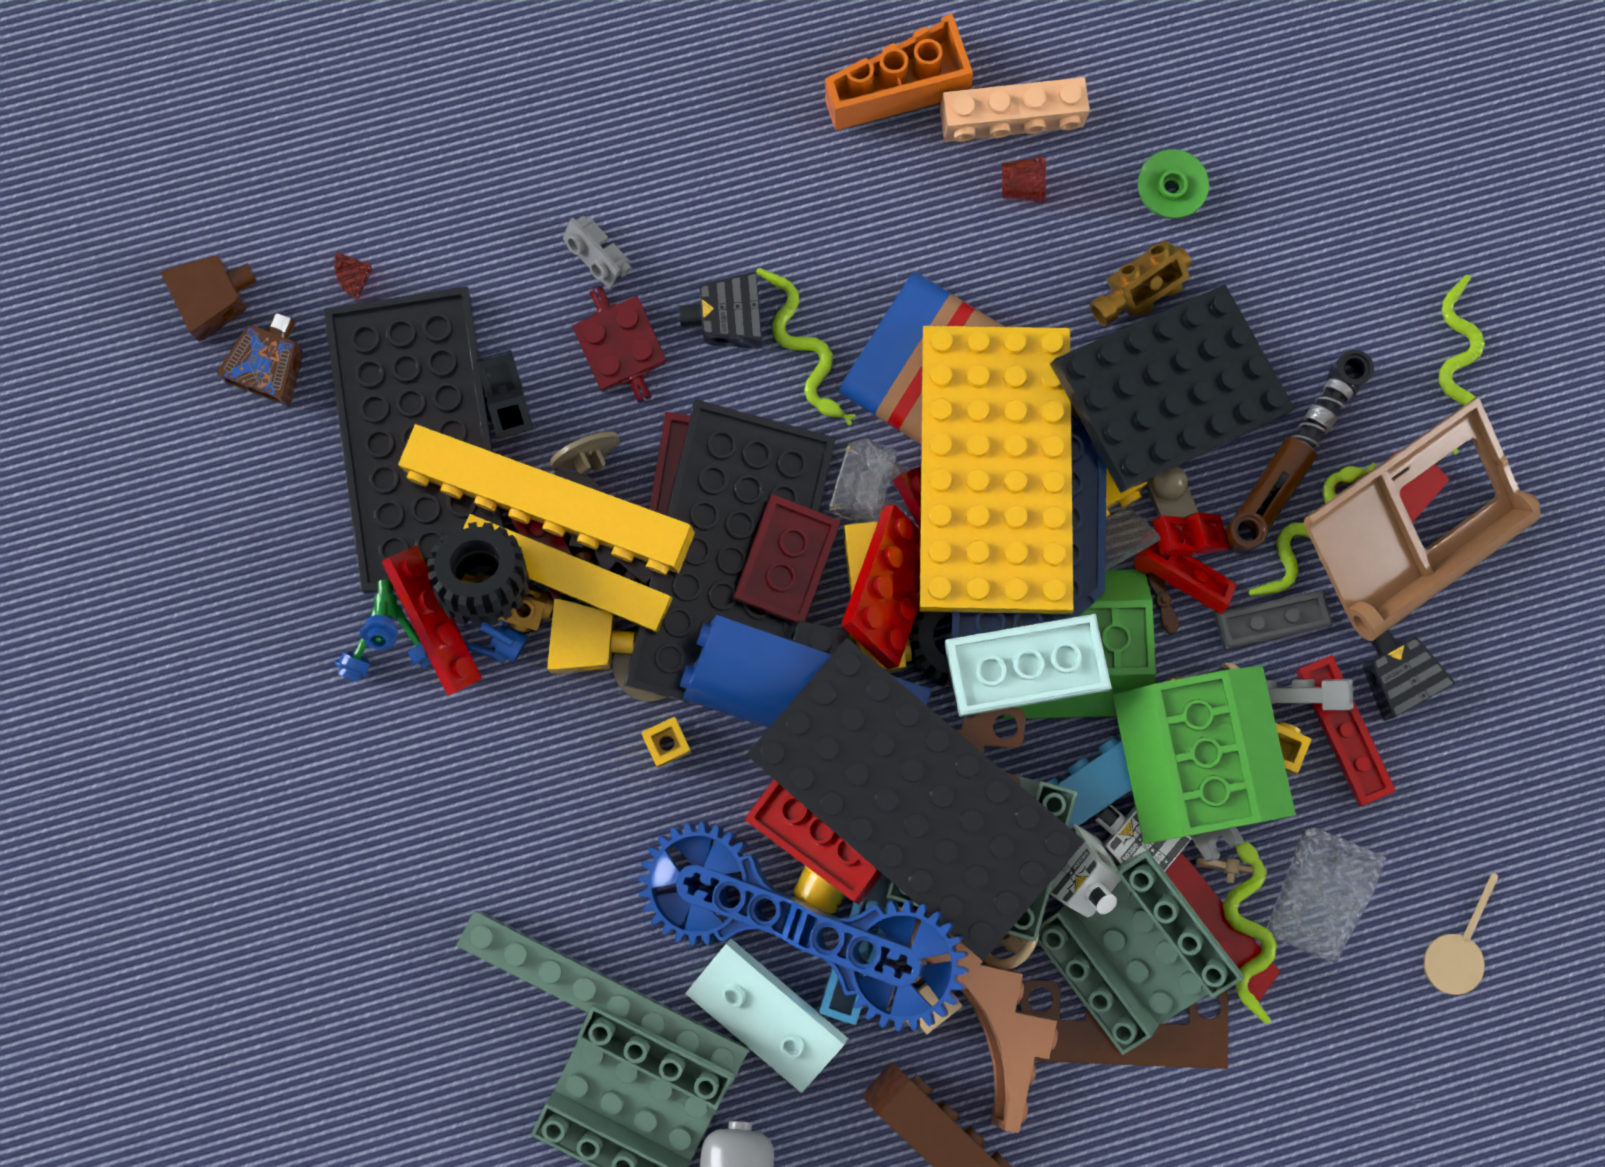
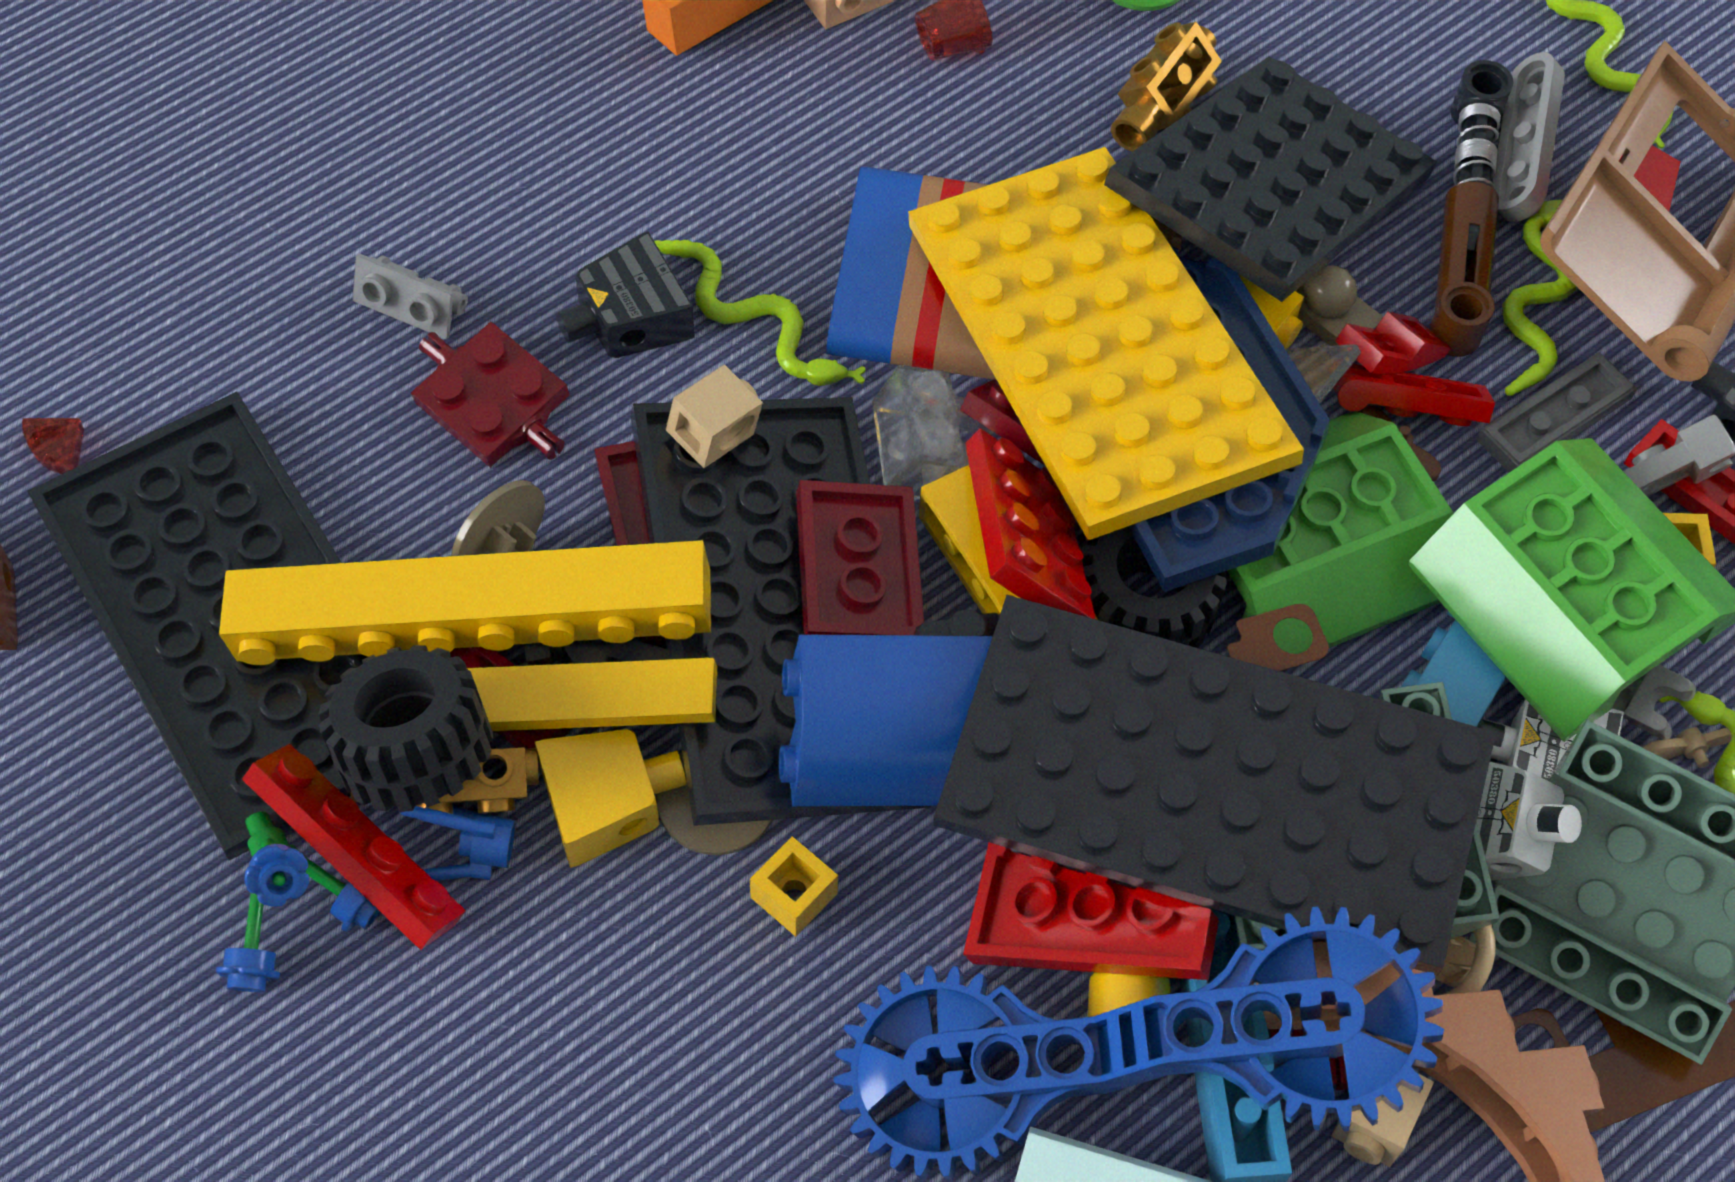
camera: 20 degrees left, 20 degrees down
(504, 394) = (348, 508): black brick -> none
(739, 430) = (714, 415): none -> tan brick
(1027, 665) = (1279, 542): light aqua plate -> none
(1365, 414) = (1528, 137): none -> light grey plate

